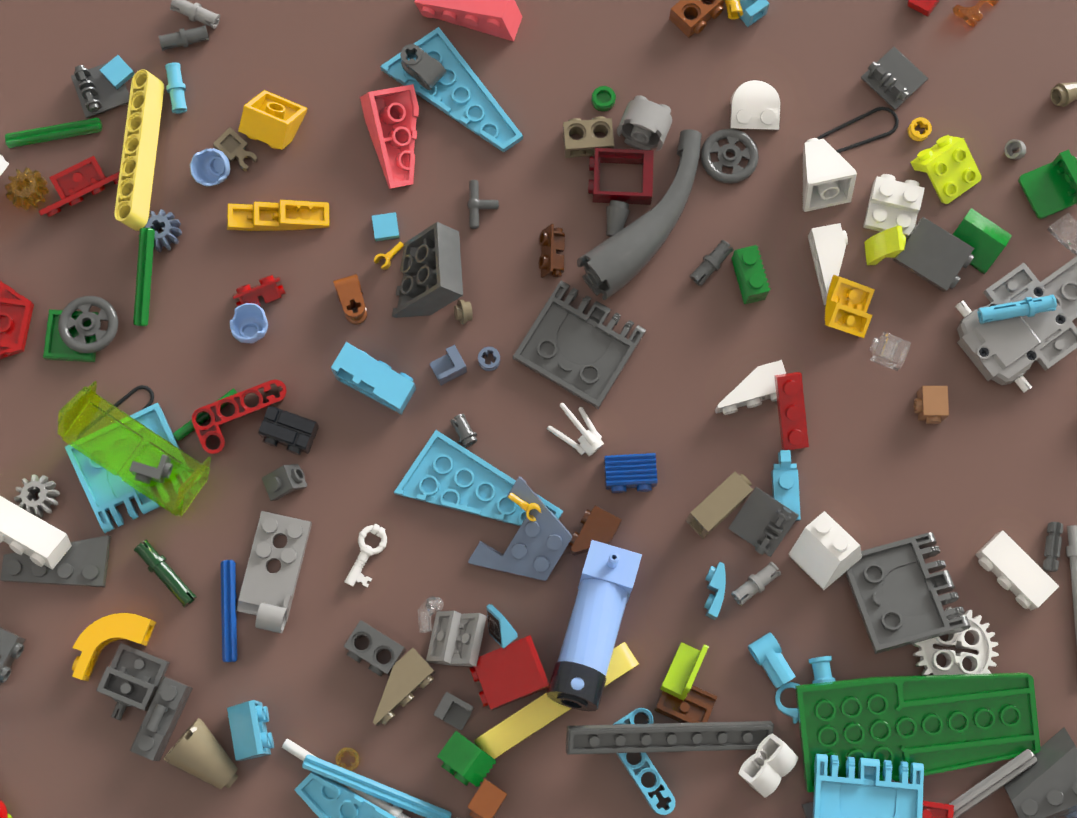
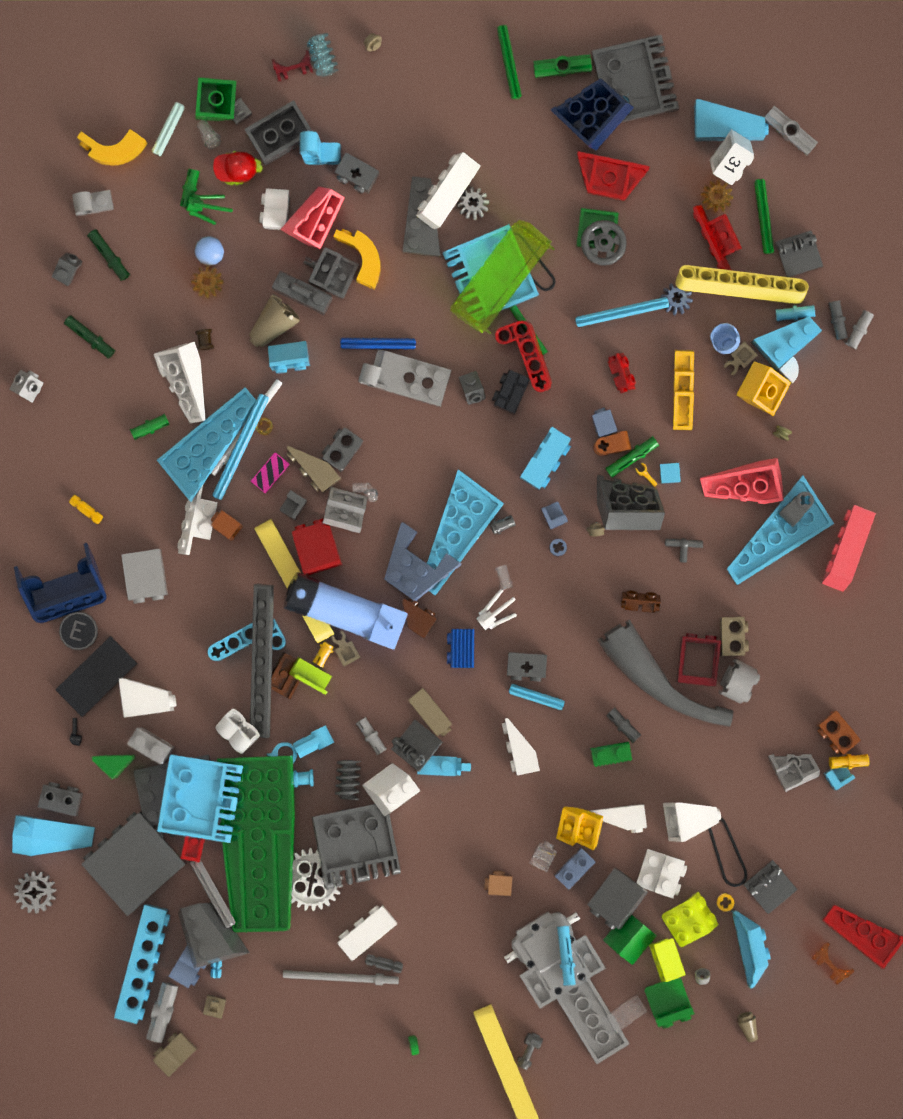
camera: 95 degrees right, 10 degrees up
(45, 764) = (275, 208): none -> white brick
(56, 707) = (315, 217): none -> coral wedge
(117, 72) = (810, 267): medium azure tile -> none
(143, 276) = (637, 285): green axle -> none
(145, 473) = (481, 285): dark grey bracket -> none
(164, 572) = (411, 295): dark green pin -> none
(178, 295) = (622, 312): none -> medium azure axle
(214, 94) = (786, 342): none -> medium azure wedge
(248, 89) = (790, 370): none -> white tile
(249, 323) = (596, 364): light blue hair -> none
(324, 310) = (603, 422): none -> sand blue brick
(328, 94) = (782, 433): none -> olive bush
(361, 266) = (631, 457): none -> green pin
(366, 551) = (415, 446): white piece -> none
(411, 746) = (270, 473): none -> dark pink tile
(465, 760) = (256, 512): green brick -> none
(499, 627) = (350, 542): medium azure slope -> none
(525, 506) = (436, 568): yellow hand -> none
(533, 424) = (504, 578): none -> clear pin
(577, 347) = (562, 615): dark grey hinge -> none
(603, 98) = (767, 651): green tile -> none
(616, 216) = (665, 653): dark grey cone -> none
(646, 372) = (537, 662): none -> dark grey brick
(646, 624) = (346, 652): none -> dark tan plate
(650, 654) = (323, 653): none -> yellow pin
(685, 373) = (536, 697): none -> medium azure axle
(717, 583) = (373, 706): medium azure slope -> none
(738, 173) = (702, 735): dark grey plate -> none
(747, 57) = (794, 770): none -> light grey slope
(755, 106) = (751, 771): white slope -> none
(791, 411) = (499, 774): red plate -> none
(818, 609) = (348, 779): none -> dark grey piece
(884, 245) = (626, 860): neon yellow slope -> none
(900, 310) = (574, 868): none -> sand blue brick
(975, 93) = (752, 947): none -> medium azure wedge
(1001, 192) = (667, 960): none -> neon yellow hinge

